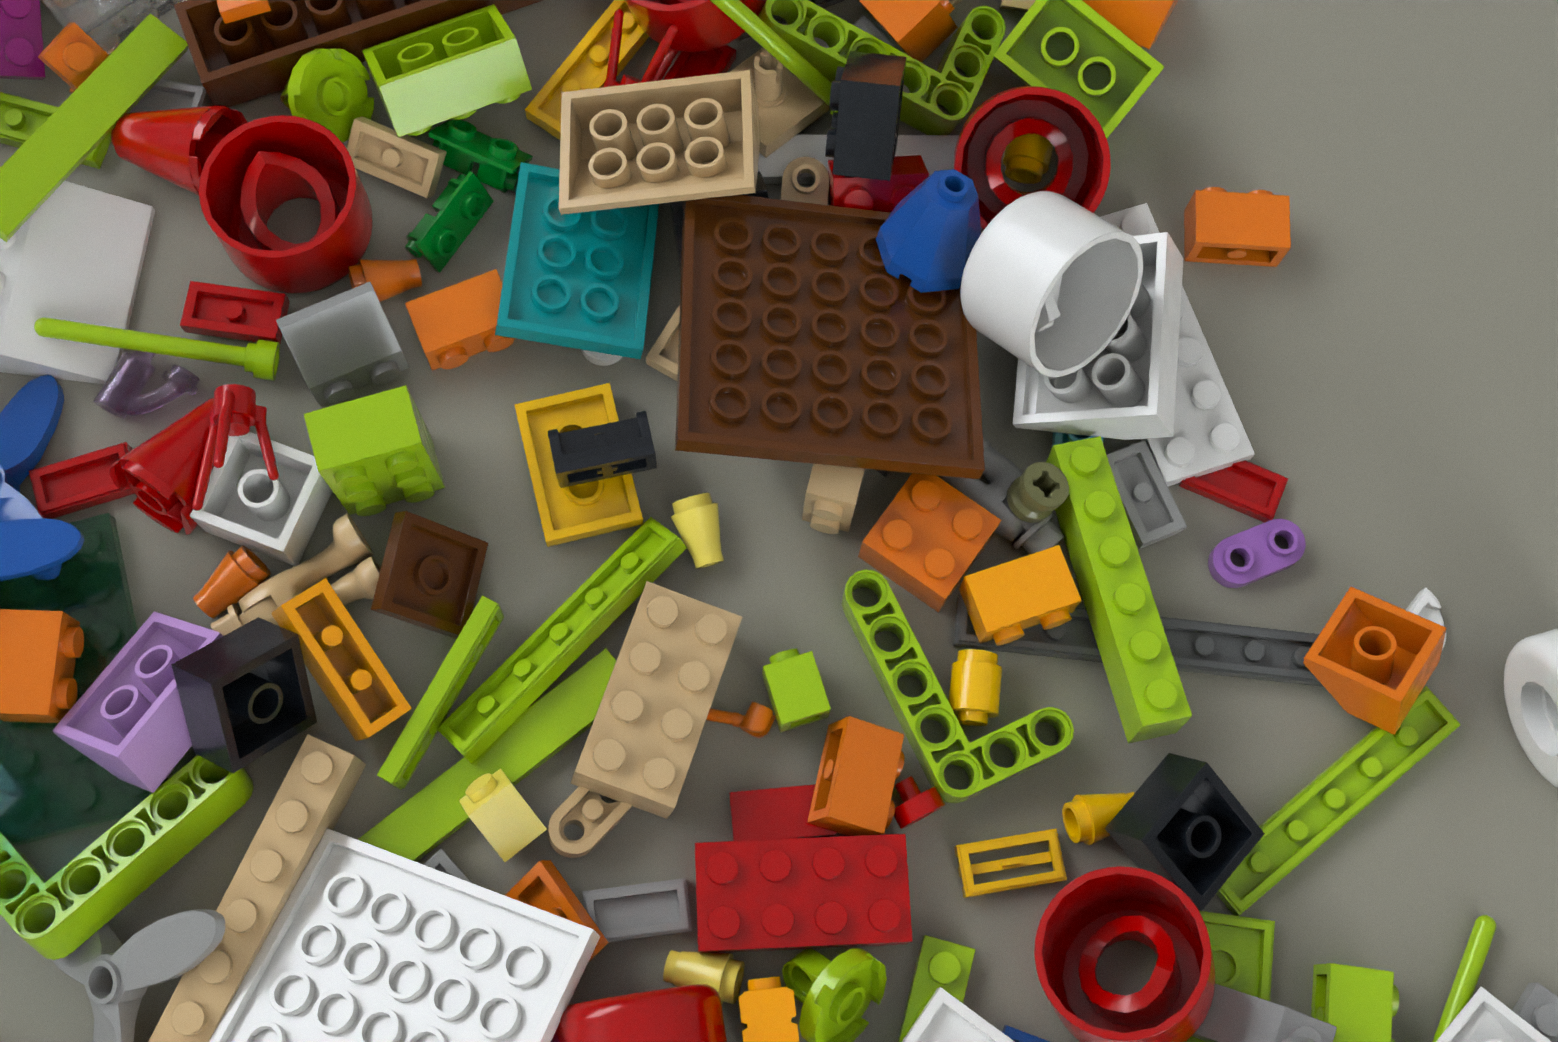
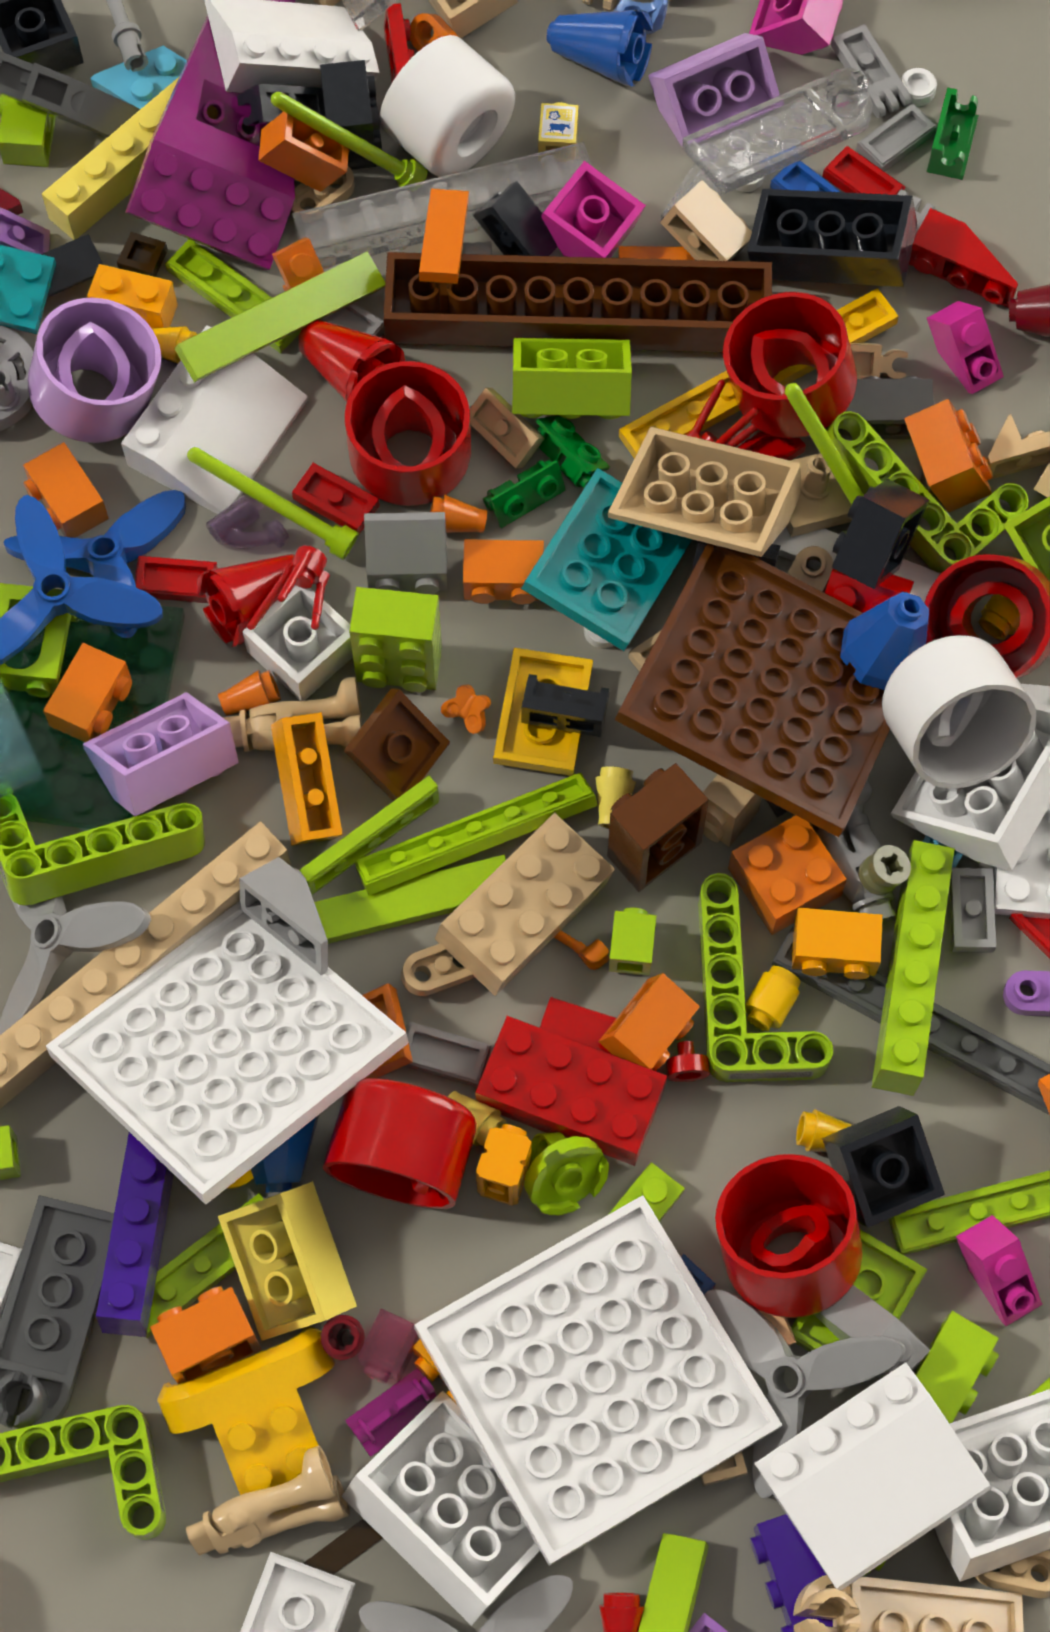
camera: 30 degrees right, 5 degrees down
(245, 694) = (229, 773): black brick -> none
(329, 90) = (476, 359): lime tile -> none
(376, 824) = (283, 905): none -> light grey slope
(492, 494) = (469, 707): none -> orange piece
(501, 814) = (375, 938): light yellow brick -> none
(768, 548) = (656, 826): none -> reddish brown brick
(967, 870) = (740, 1123): yellow tile -> none
(1351, 886) = (1000, 1269): none -> dark pink slope

